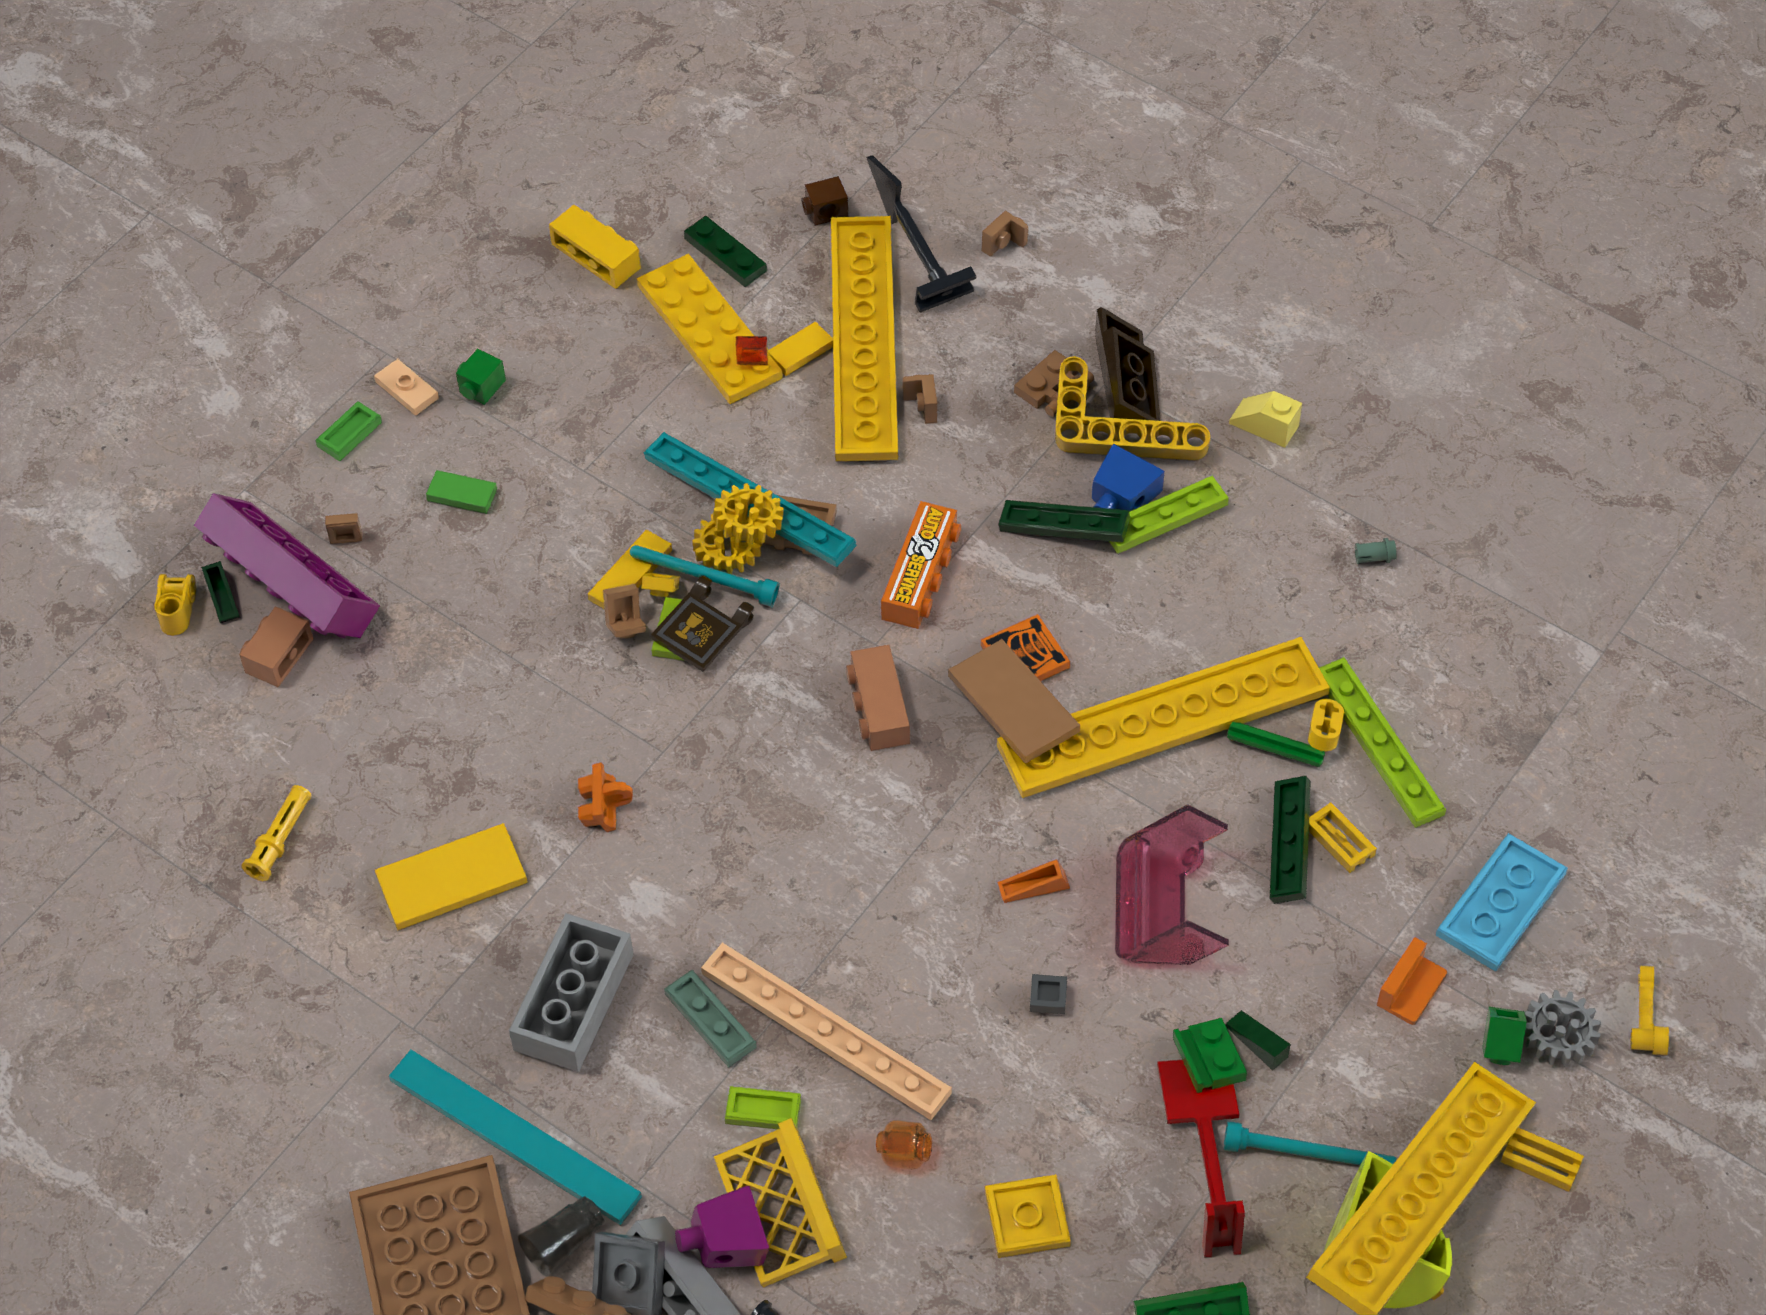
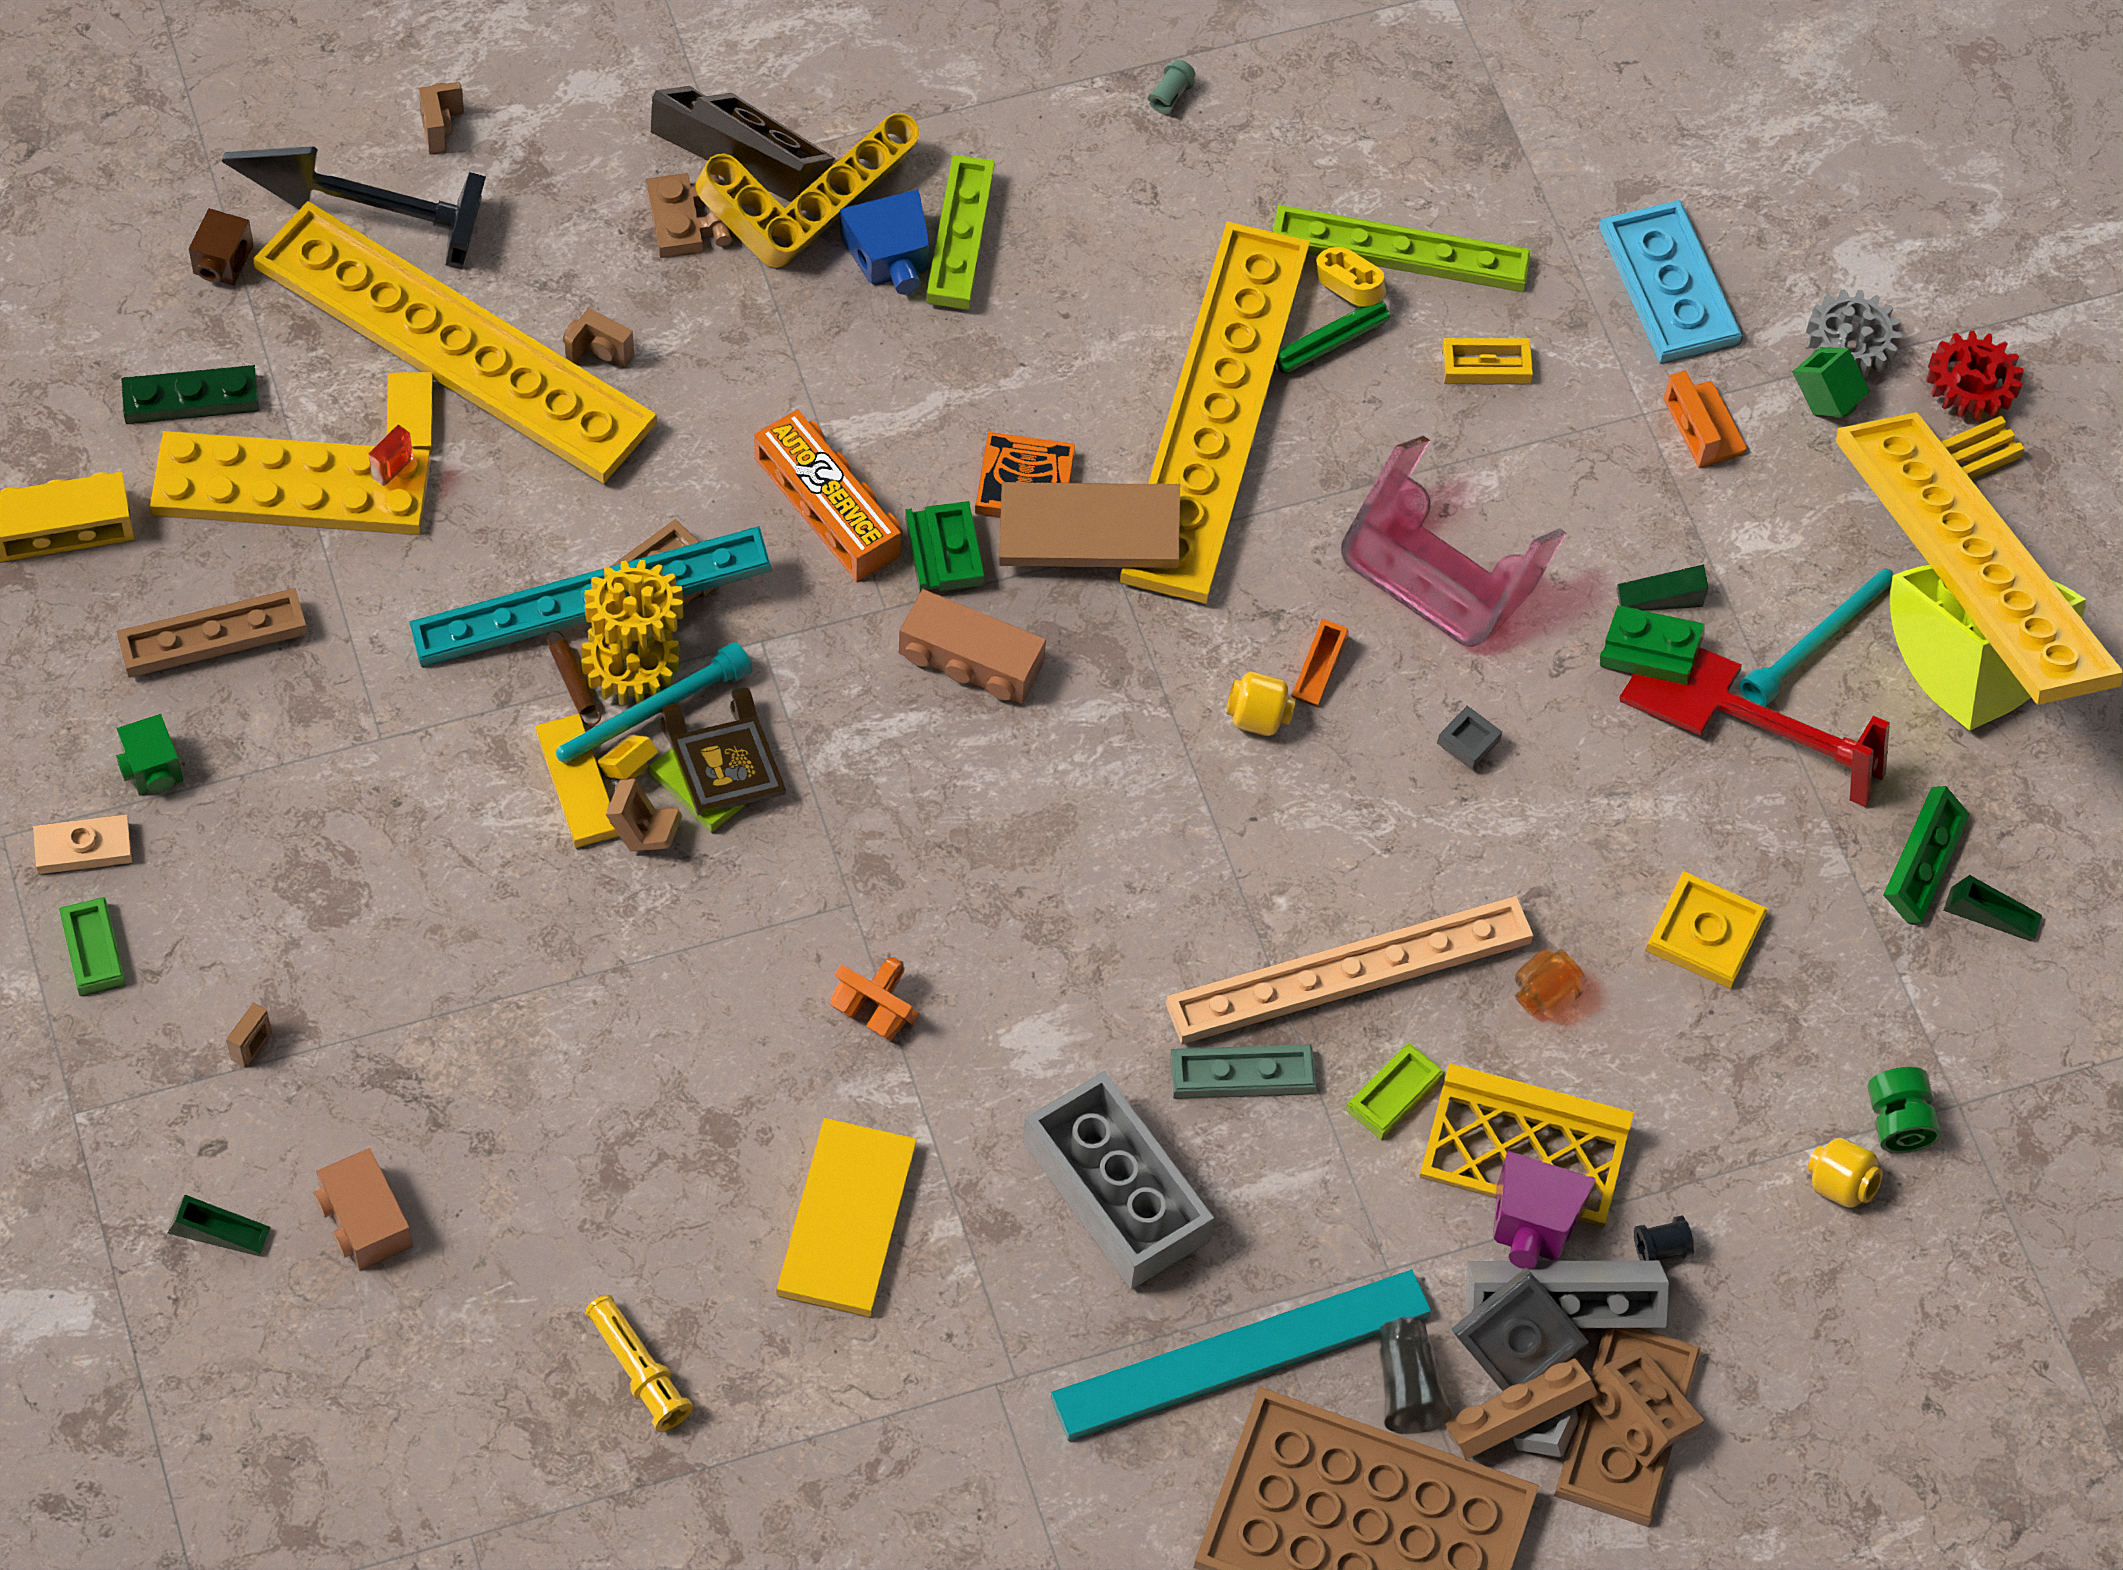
camera: 60 degrees left, 5 degrees up
(175, 602) = (186, 1278): yellow piece -> none
(286, 567) = (267, 1124): magenta brick -> none
(461, 491) = (300, 881): bright green tile -> none
(581, 354) = (212, 632): none -> medium nougat plate
(685, 540) = (573, 677): none -> dark orange piece
(937, 643) = (944, 547): none -> green plate
(968, 865) = (1259, 703): none -> yellow head
(1064, 521) = (890, 325): dark green tile -> none
(1269, 417) = (917, 54): light yellow slope -> none
(1290, 840) = (1458, 403): dark green tile -> none
(1615, 1129) = (1974, 375): none -> red gear
(1647, 1035) = (1914, 273): yellow brick -> none

